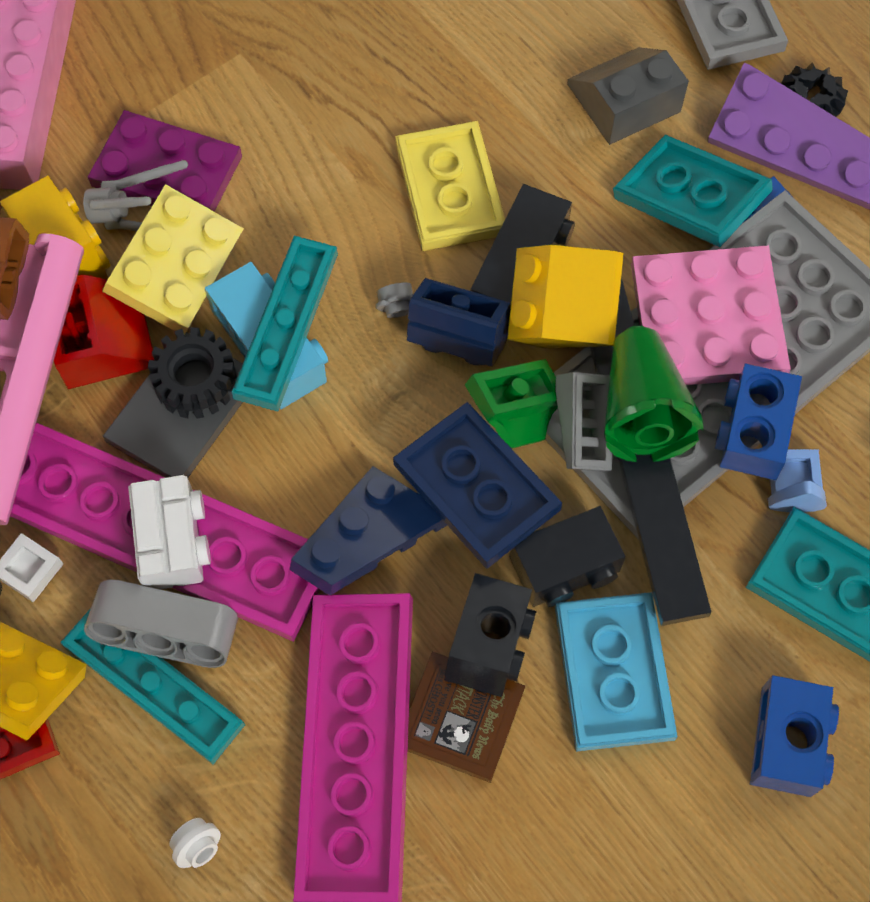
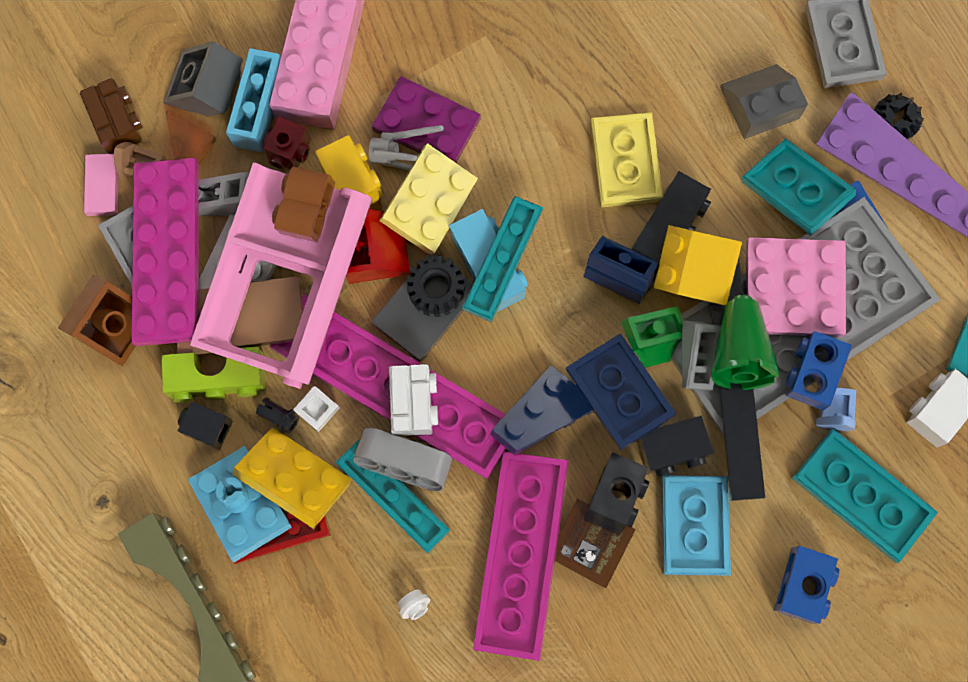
camera: 10 degrees right, 10 degrees up
(394, 299) = (579, 245): light grey plate -> none

